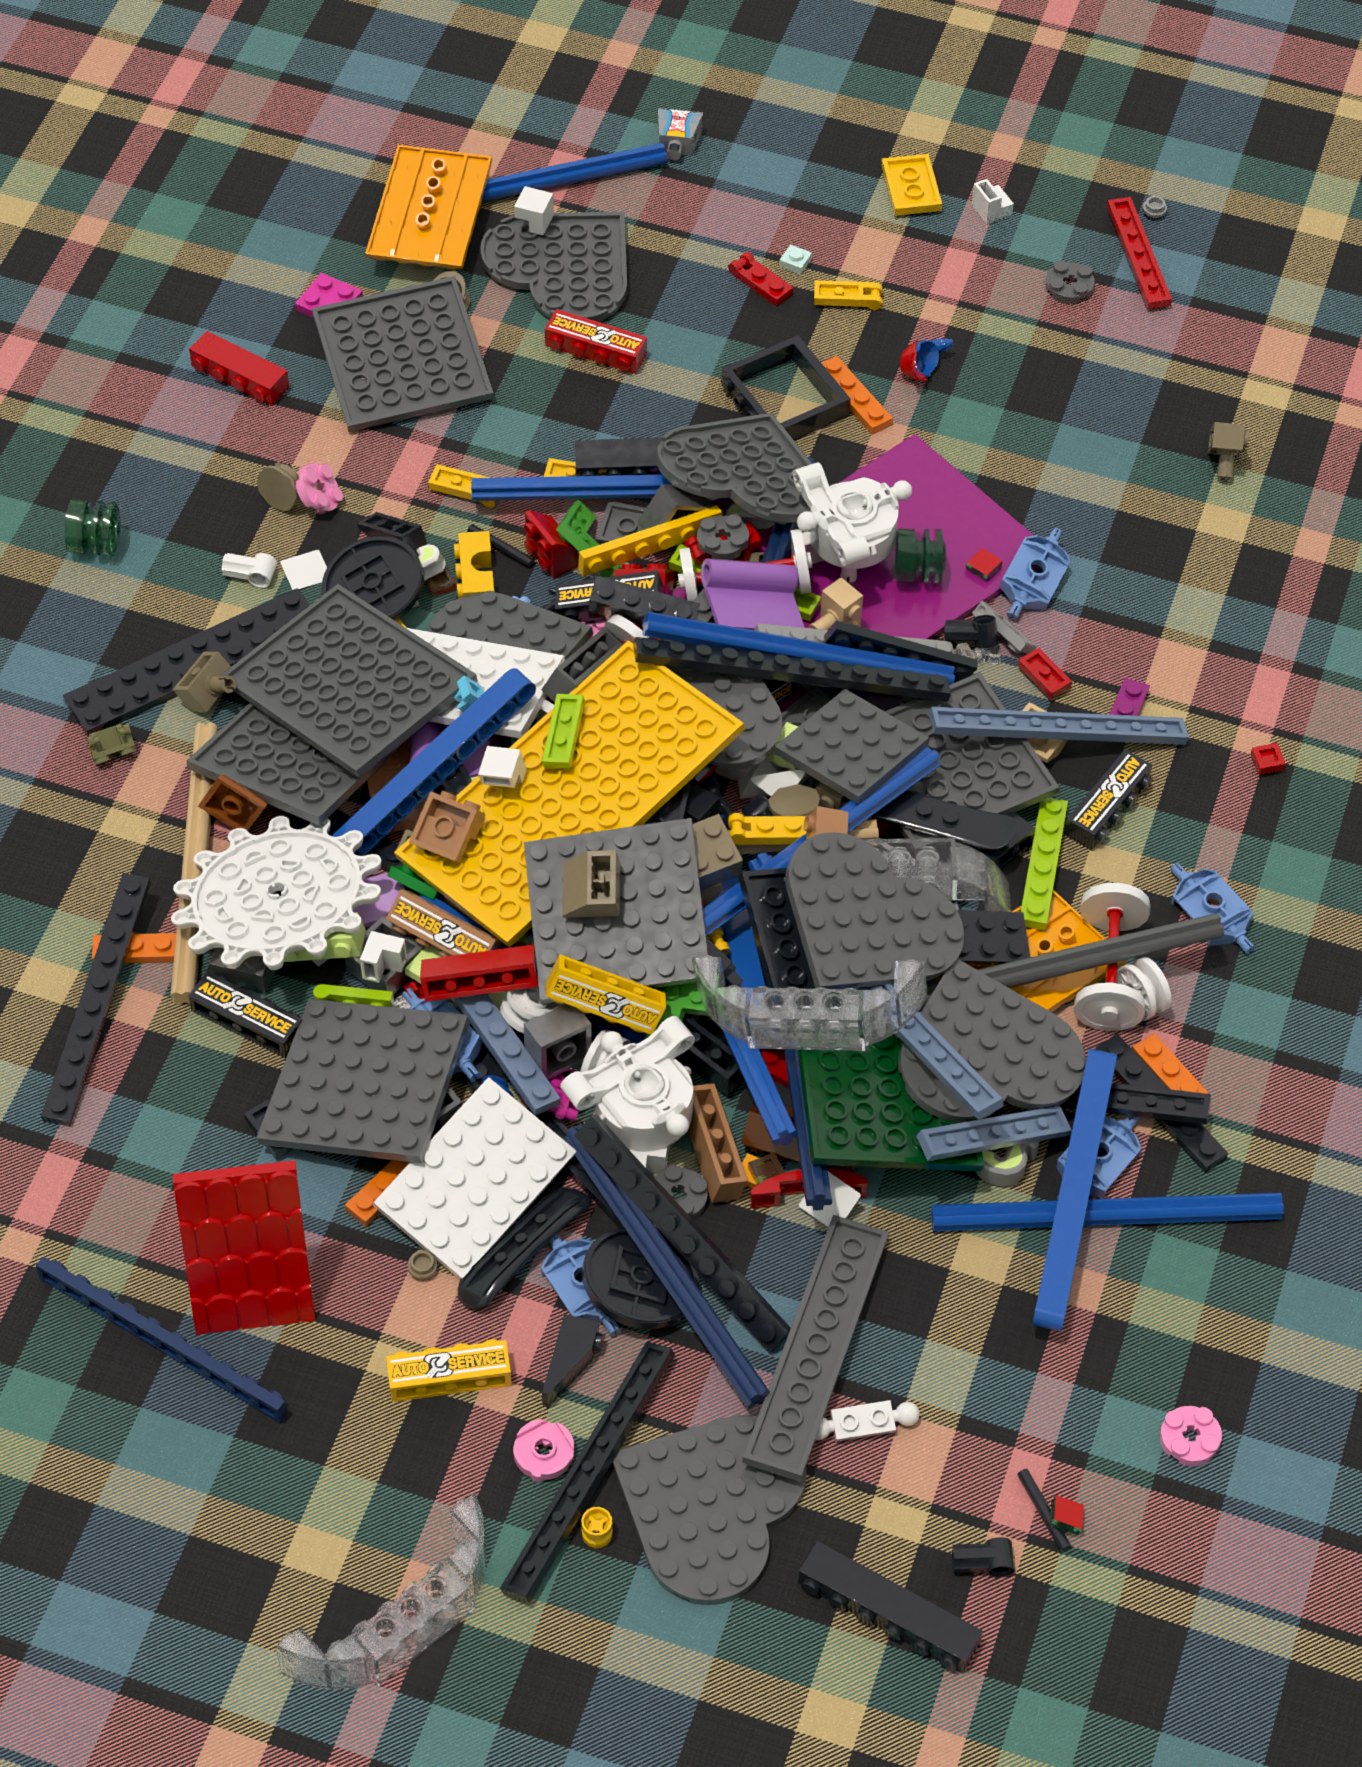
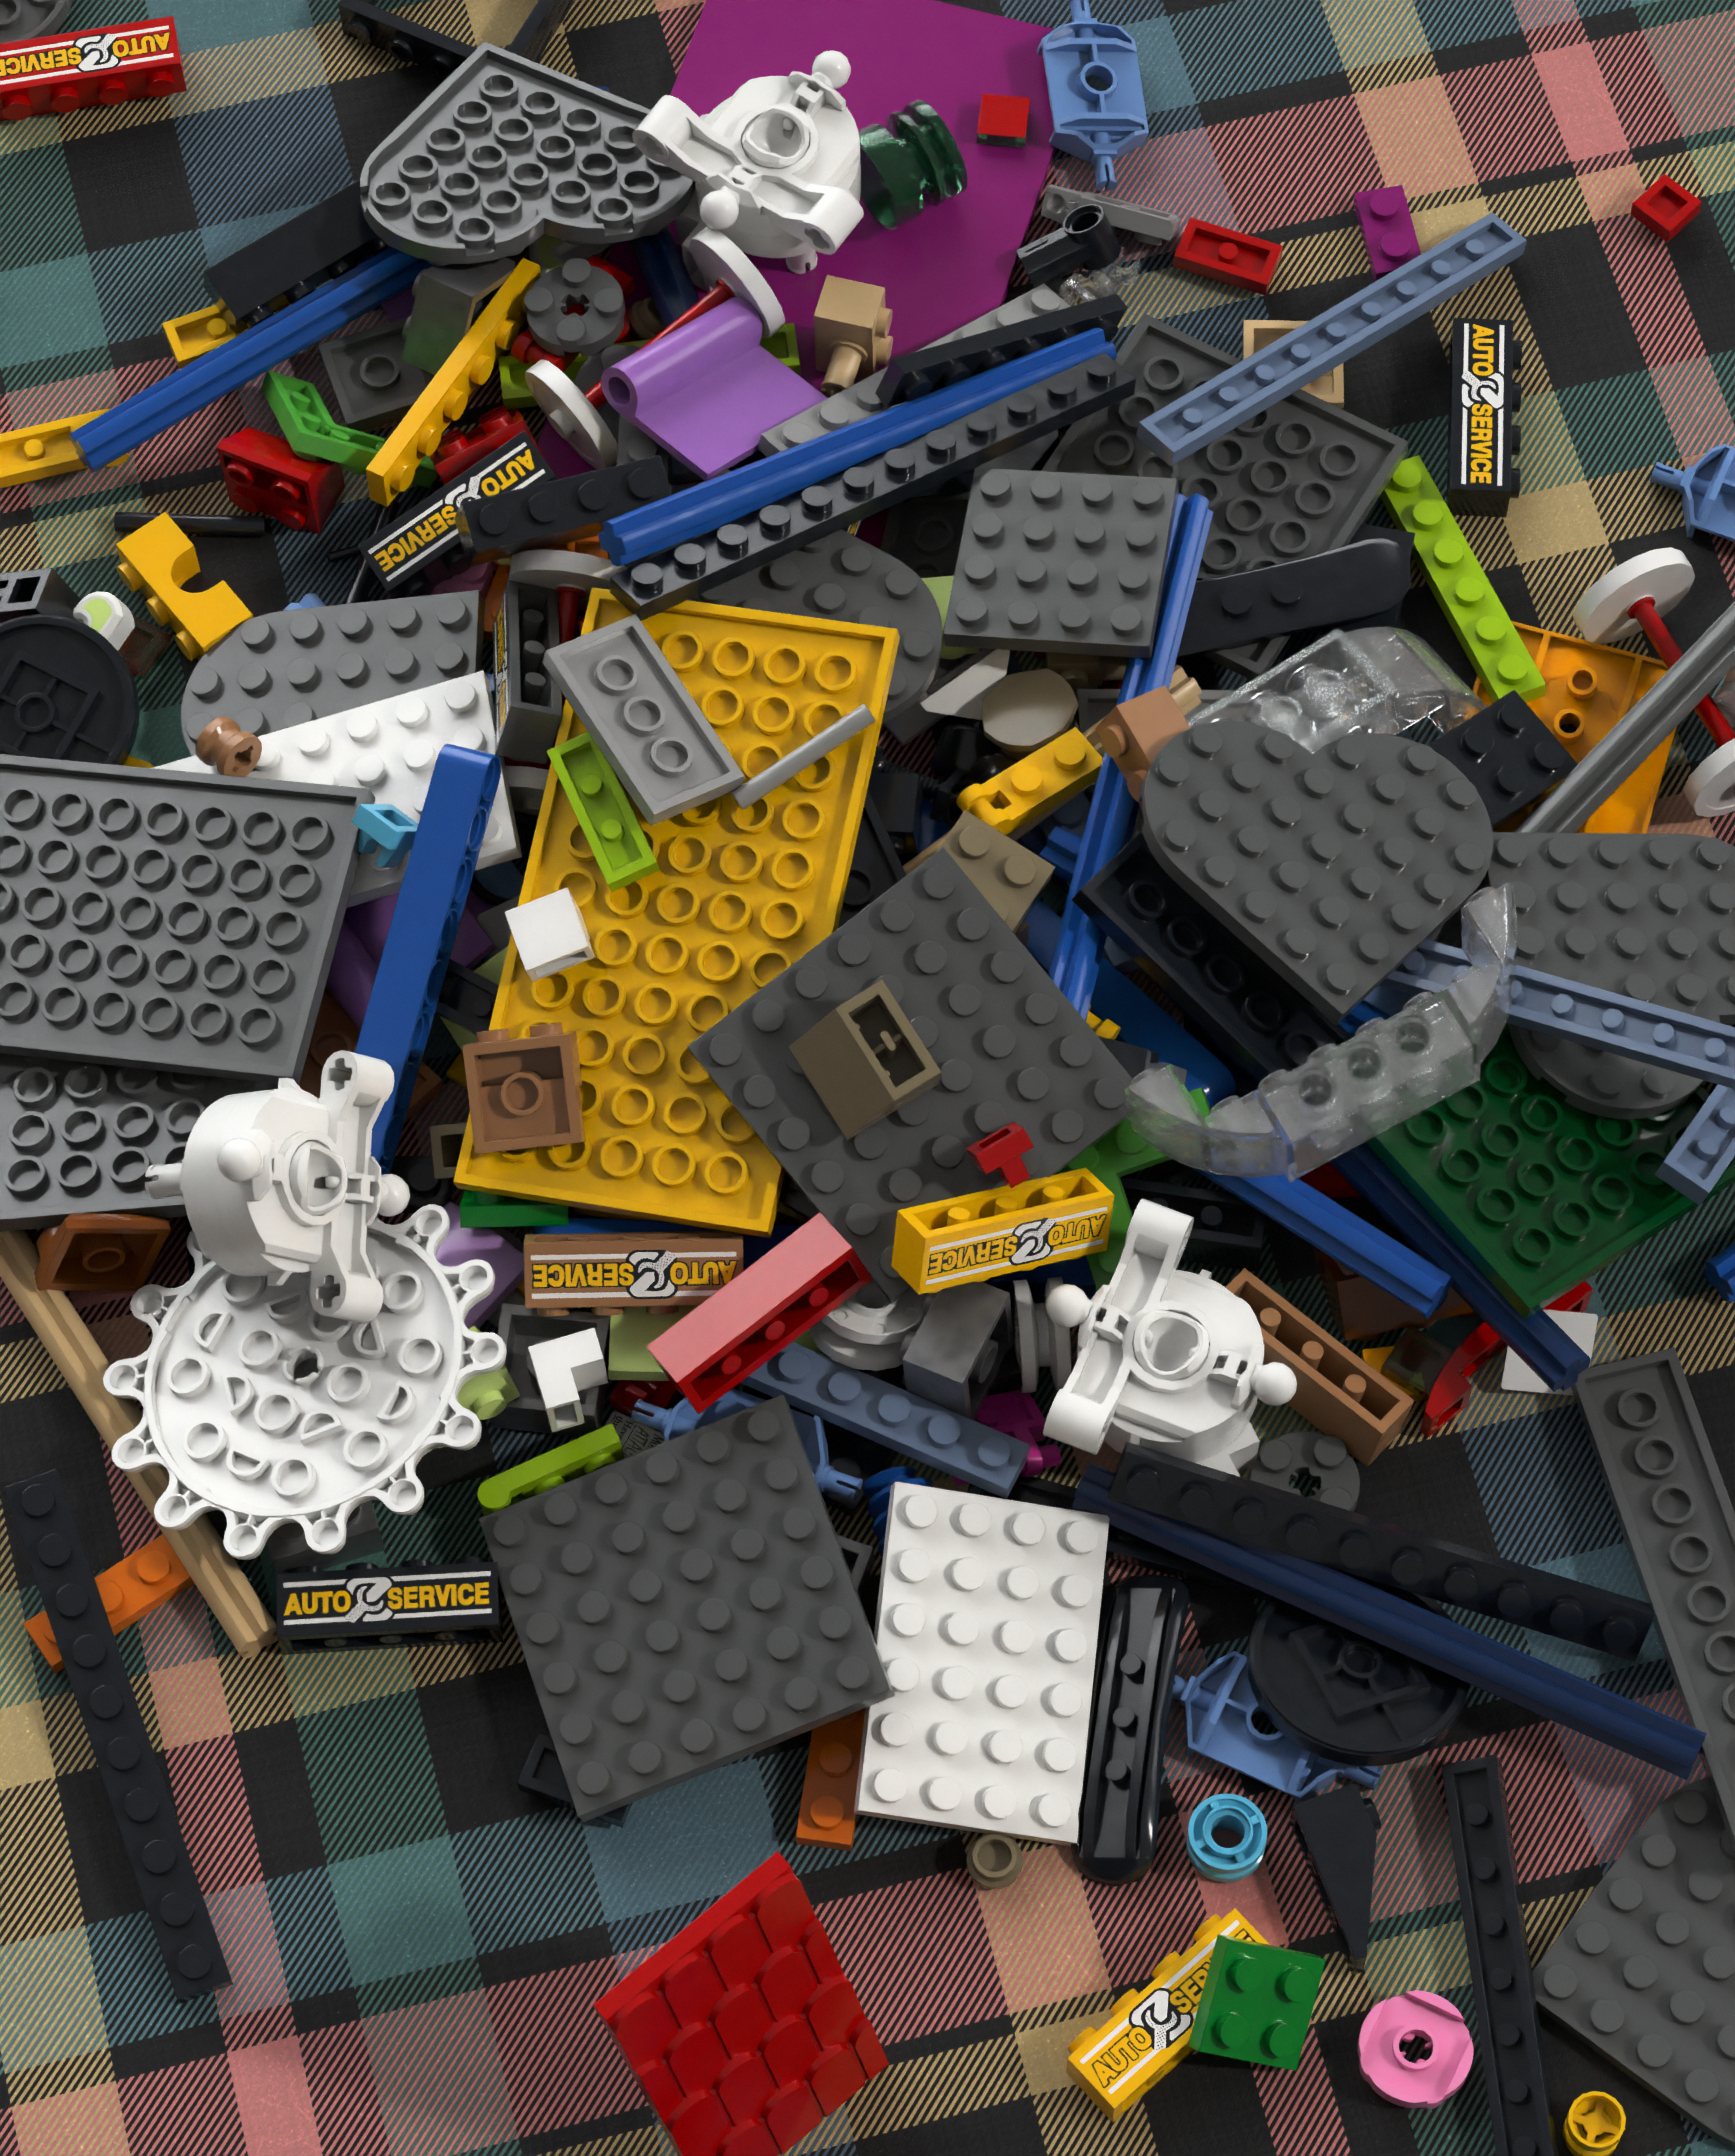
camera: 30 degrees left, 10 degrees up
(320, 807) = (292, 1183): none -> white piece
(434, 630) = (228, 748): none -> medium nougat wheel
(485, 1383) = (1256, 2002): none -> green plate
(525, 1302) = (1233, 1813): none -> medium azure wheel
(605, 701) = (643, 719): none -> light grey plate
(625, 960) = (1002, 1152): none -> red tile
(664, 753) = (803, 756): none -> light grey bar

